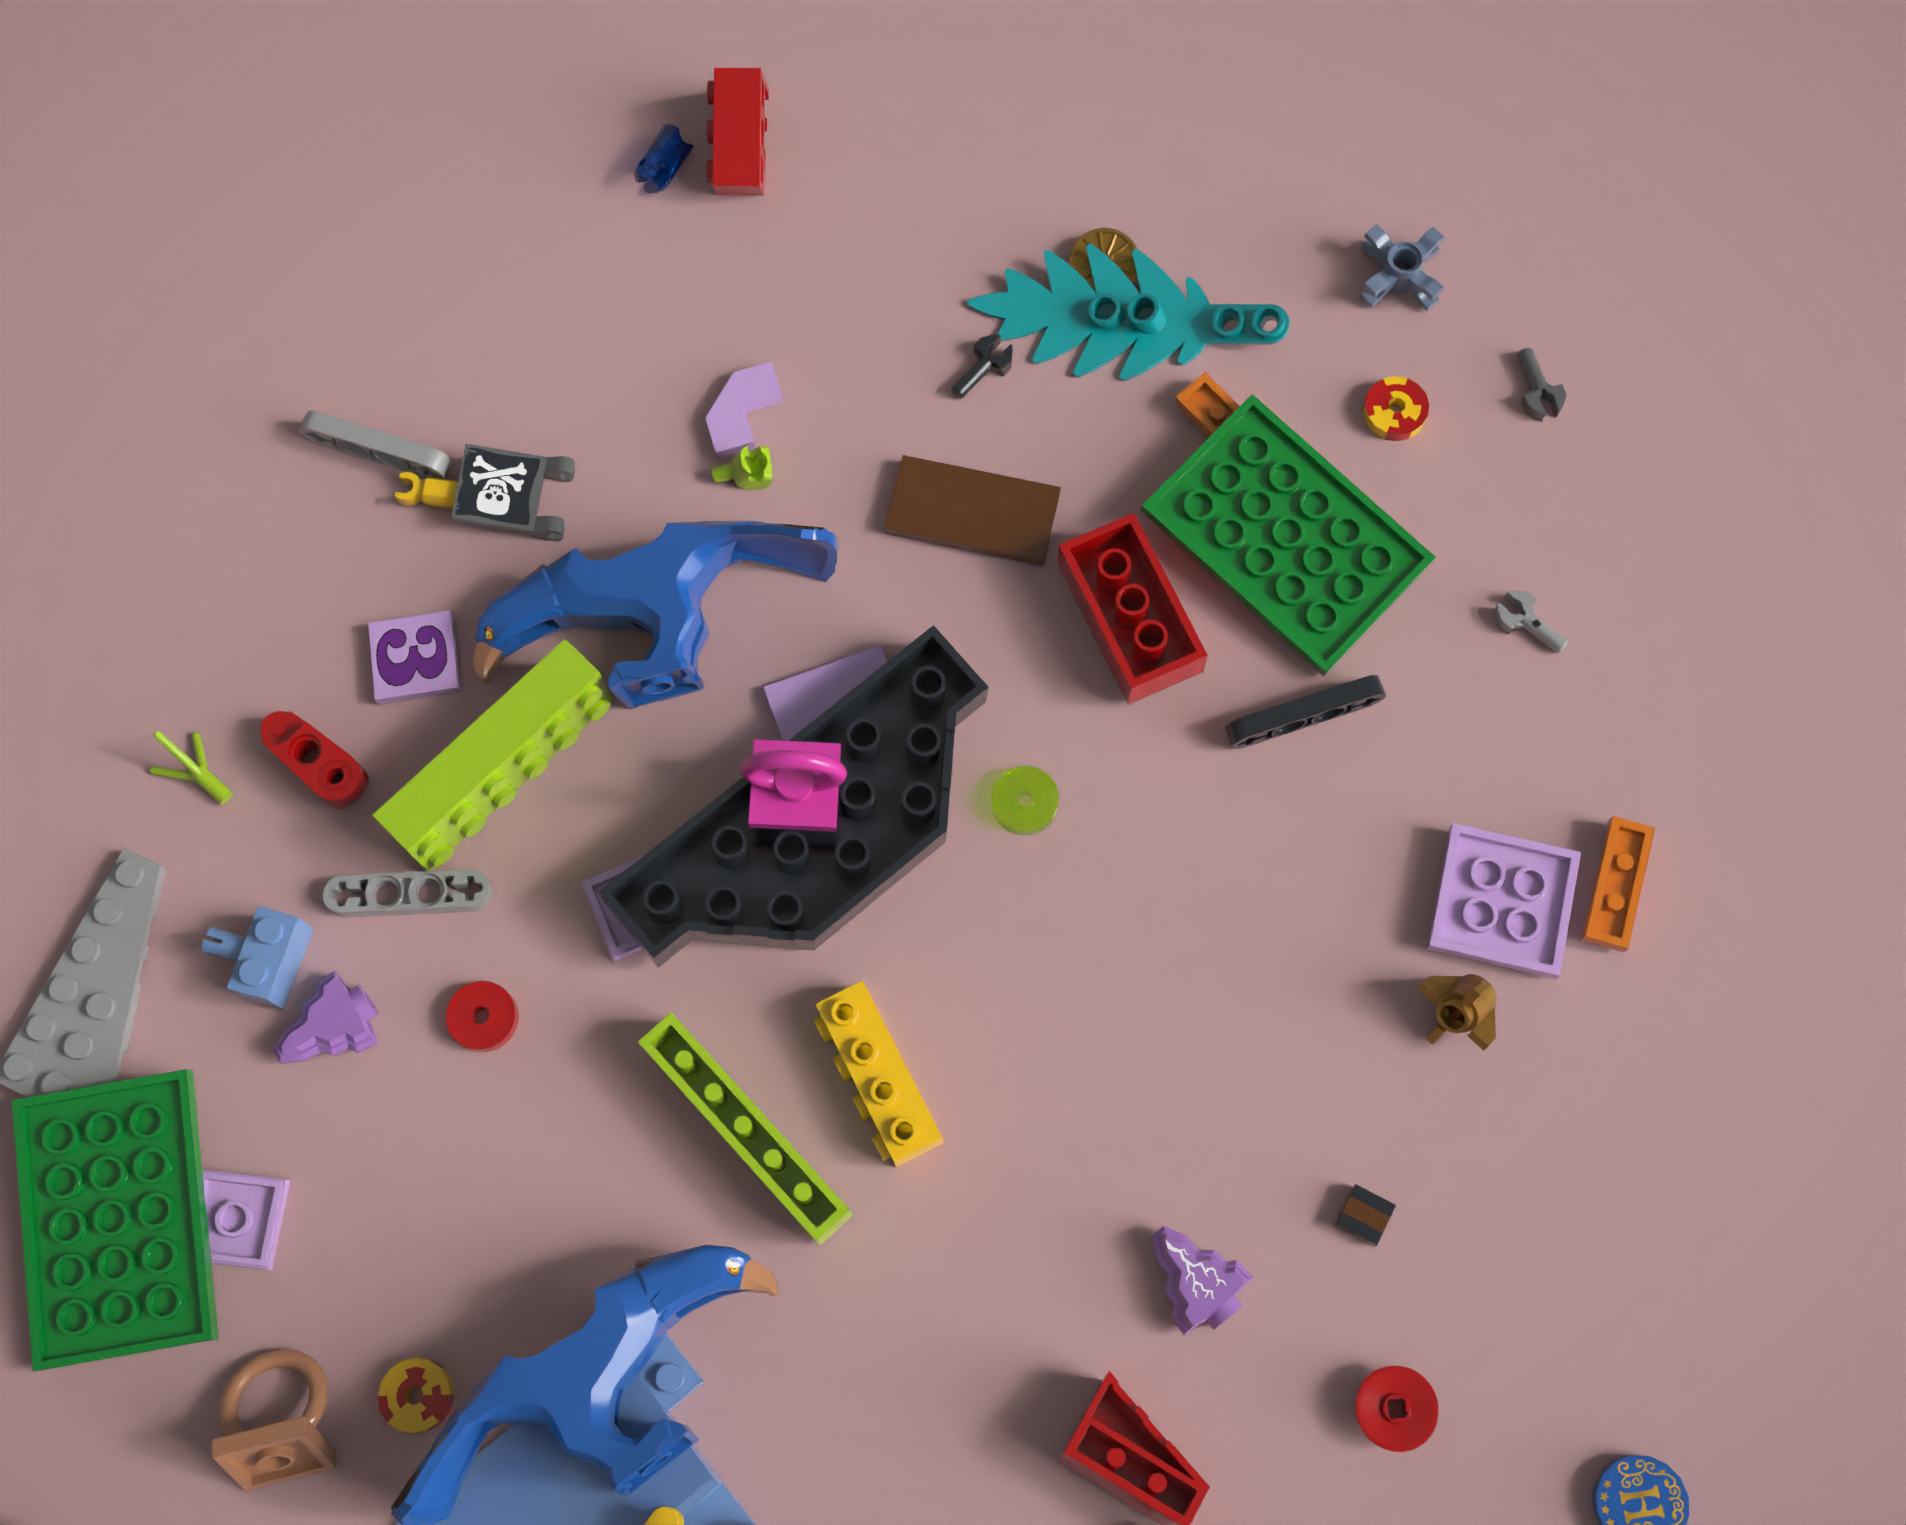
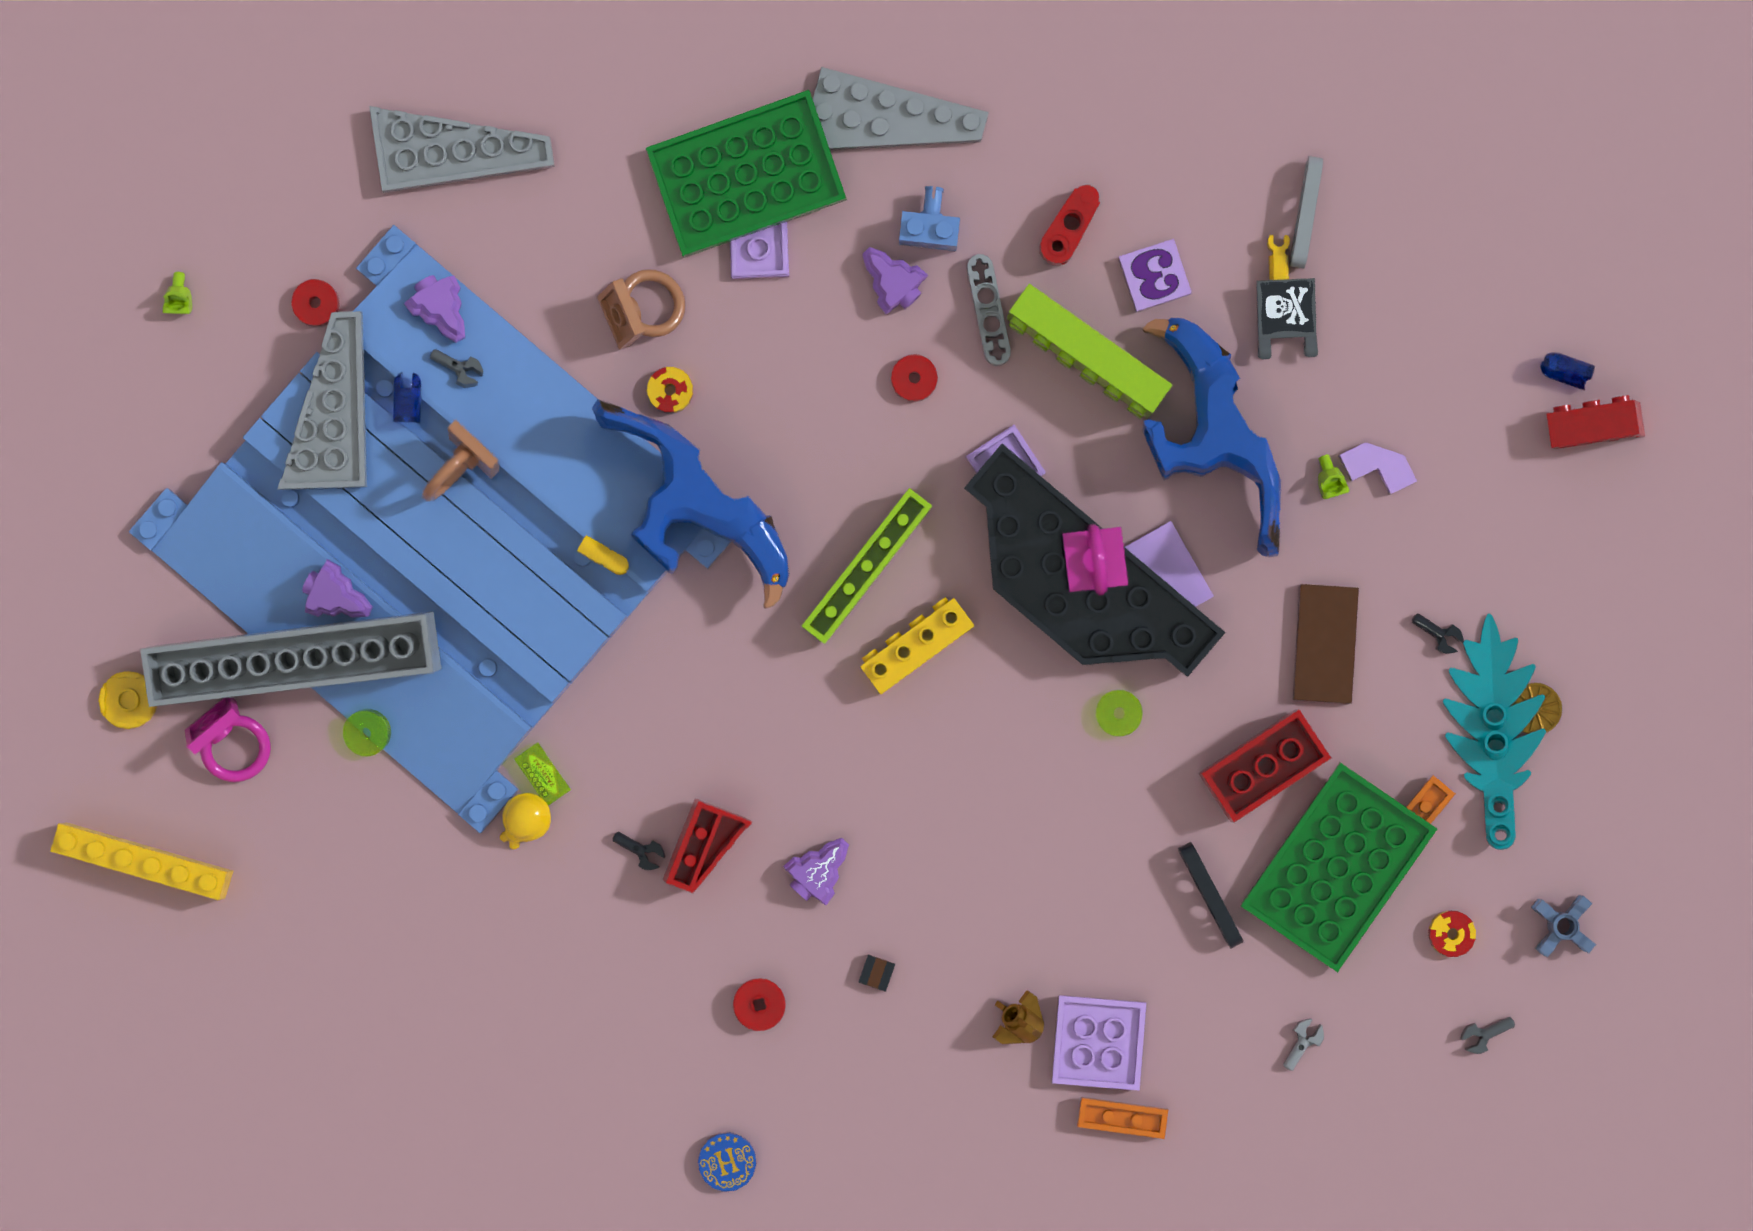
camera: 75 degrees right, 15 degrees up
(199, 773) = (1048, 146): lime plant -> none

